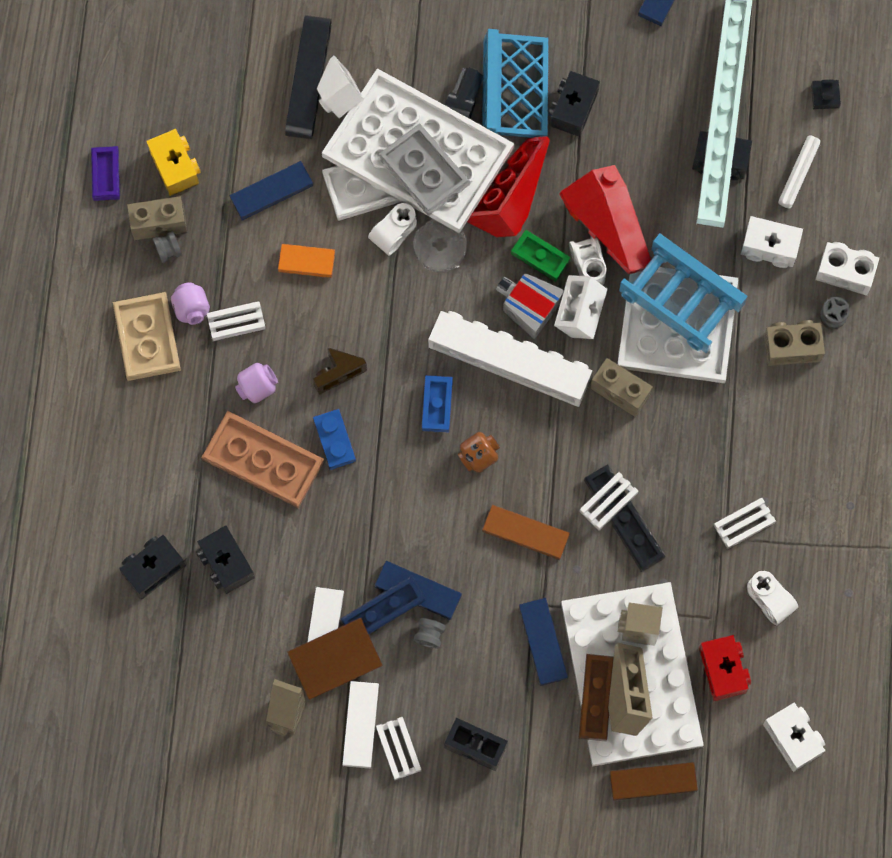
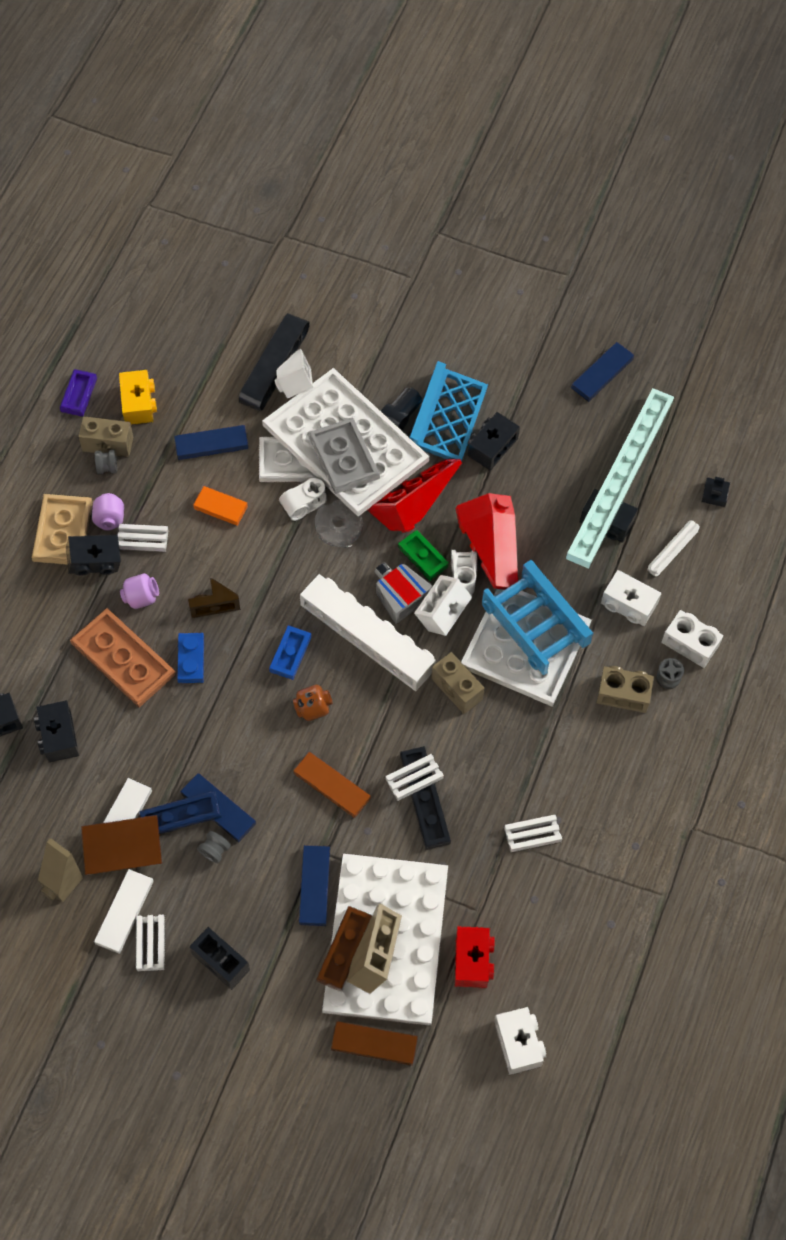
camera: 15 degrees right, 10 degrees down
(202, 347) = (81, 551): none -> black brick
(640, 623) = (405, 890): dark tan brick -> none
(773, 599) = (538, 909): white piece -> none

